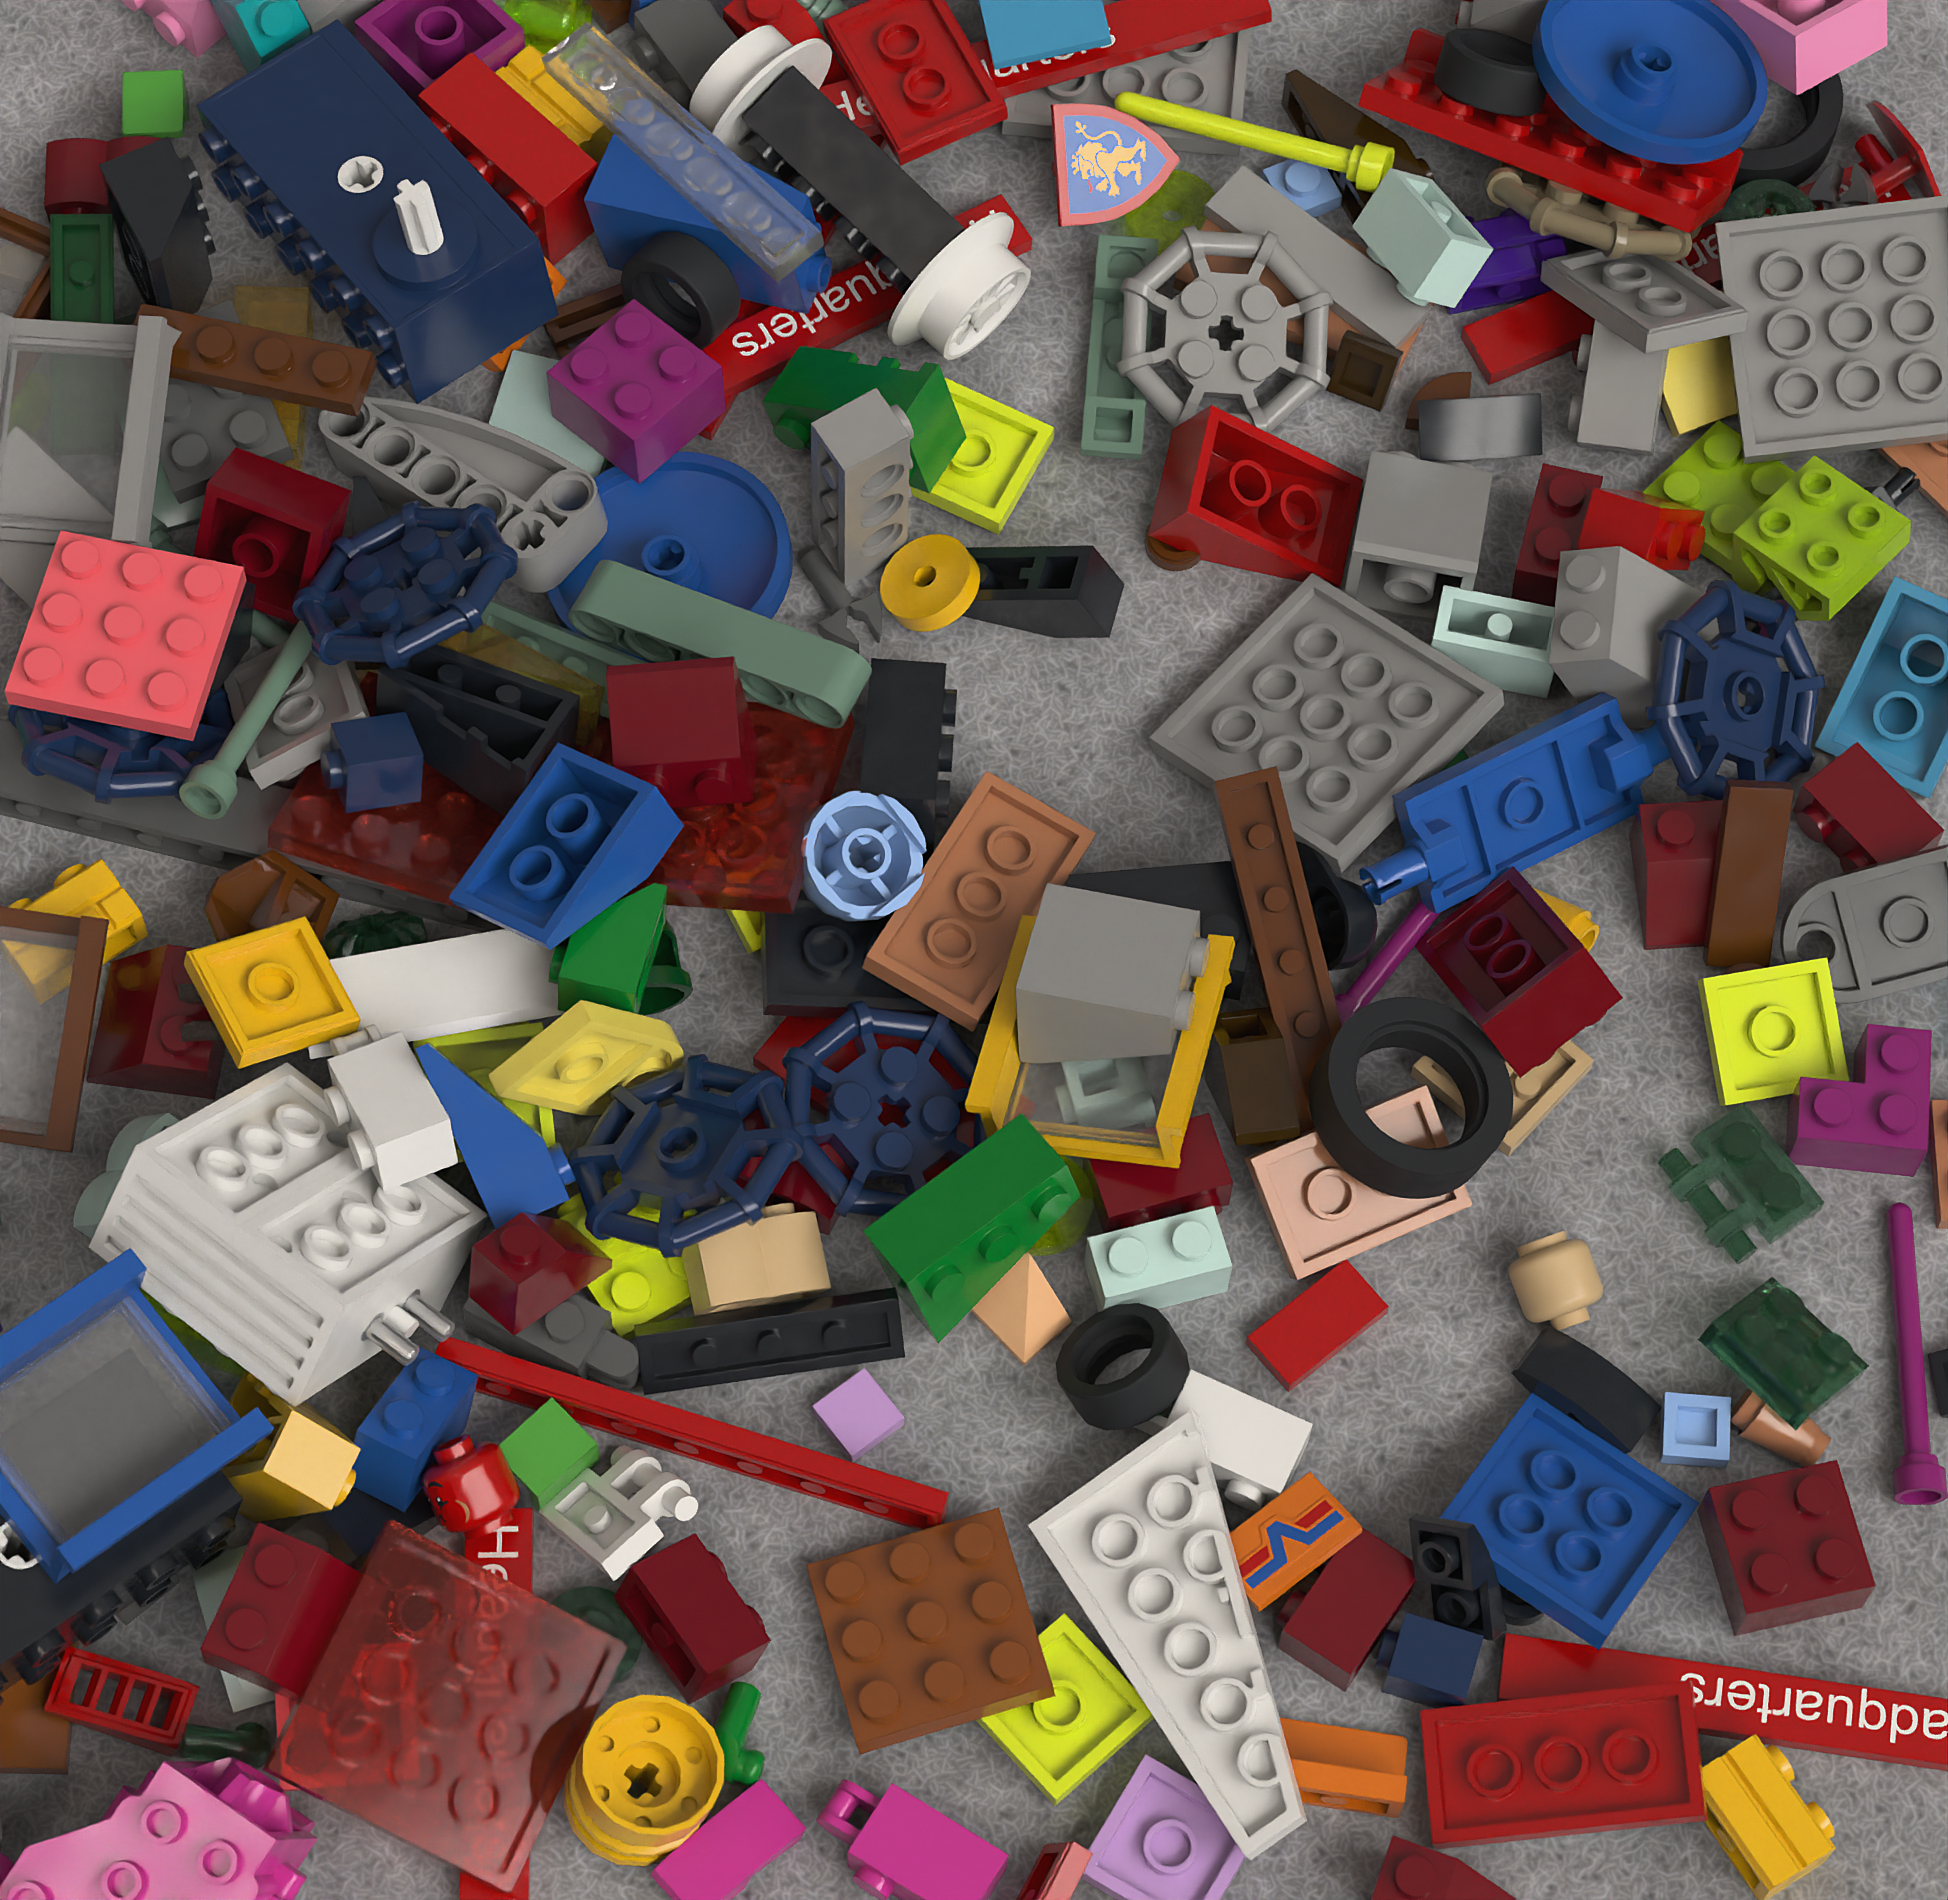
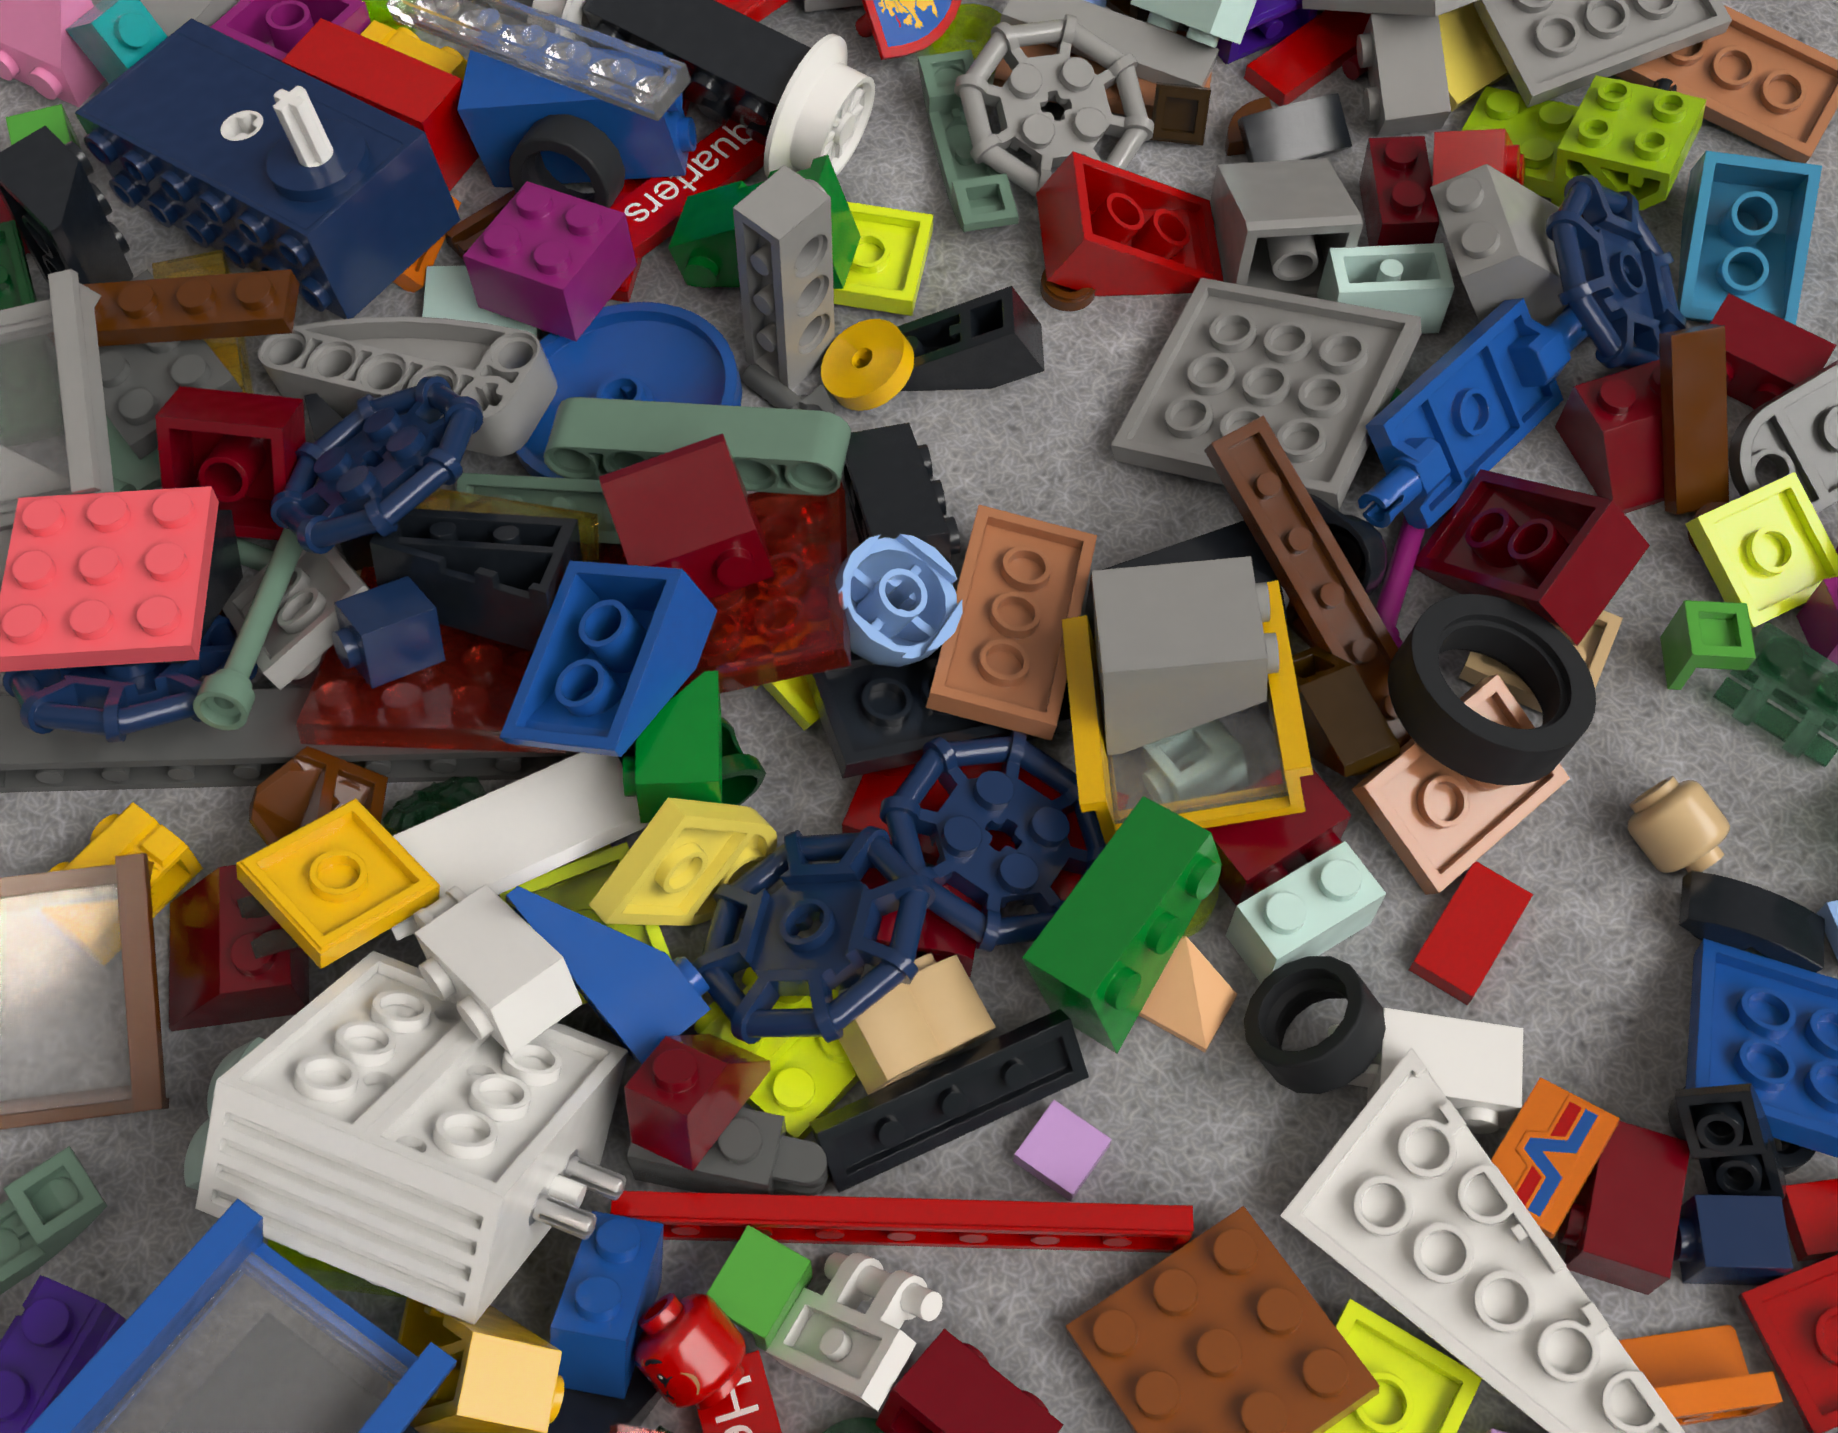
camera: 15 degrees left, 5 degrees down
(1666, 1105) = (1706, 637): none -> bright green panel

